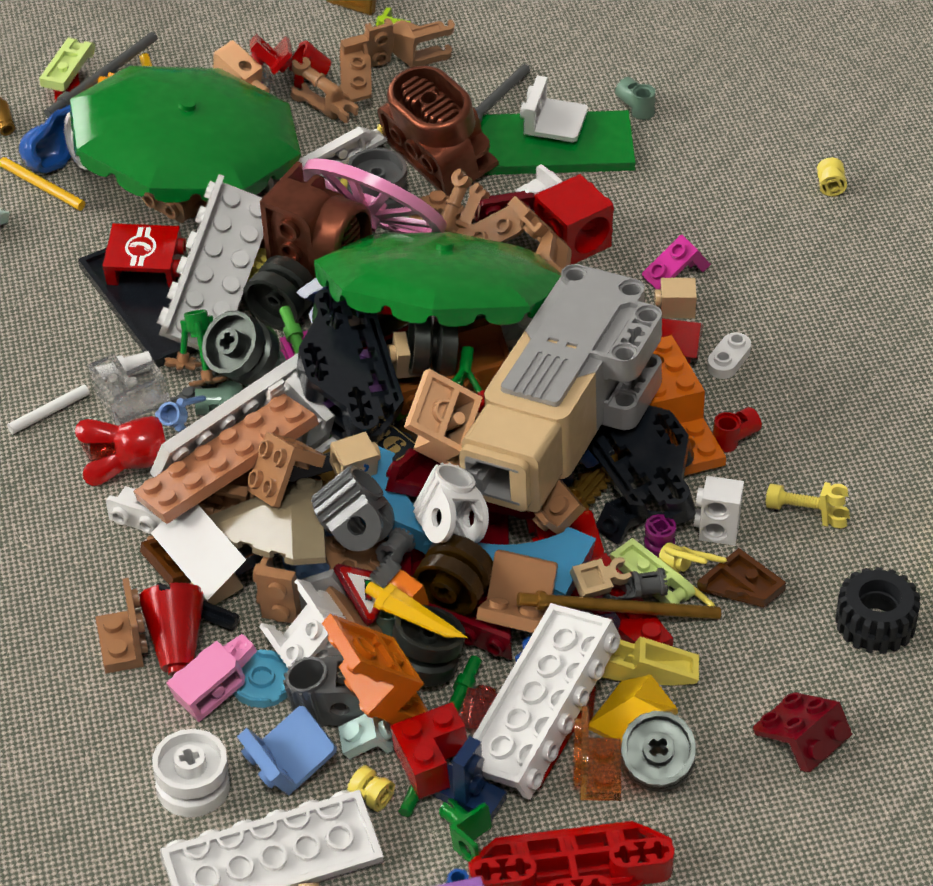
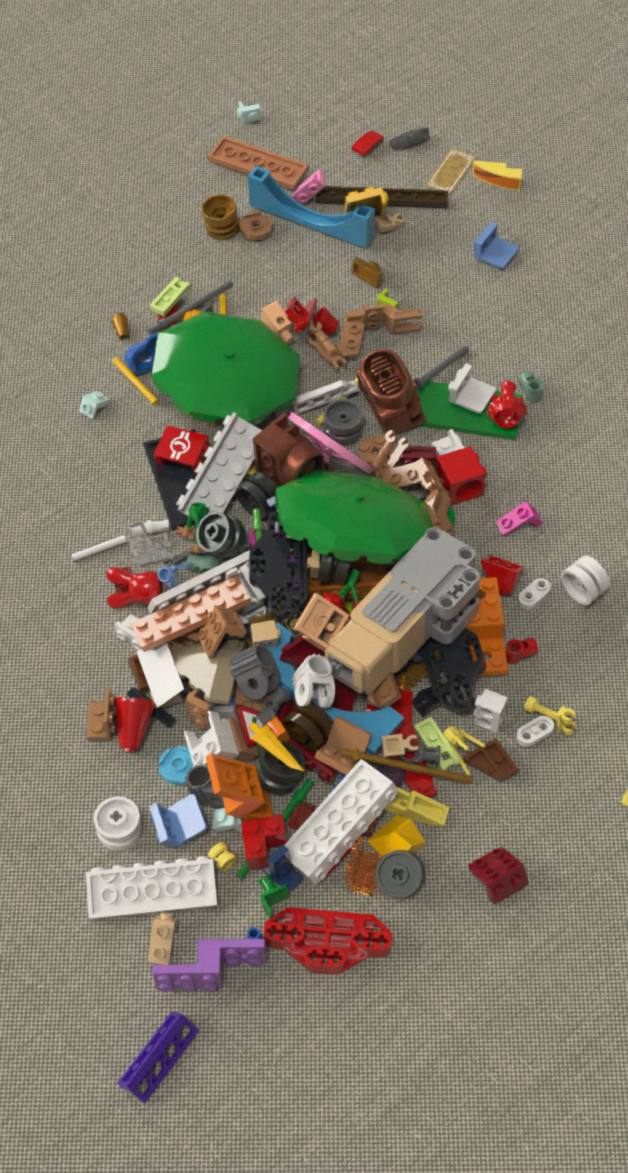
camera: 15 degrees right, 10 degrees up
(212, 676) = (147, 760): bright pink hinge -> none
(624, 133) = (507, 409): none -> red piece
(658, 533) = (452, 719): magenta wheel -> none
(676, 297) = (511, 545): tan brick -> none
(786, 533) = (534, 732): none -> white plate
(800, 320) = (585, 580): none -> white wheel
(877, 591) = (570, 787): black tyre -> none

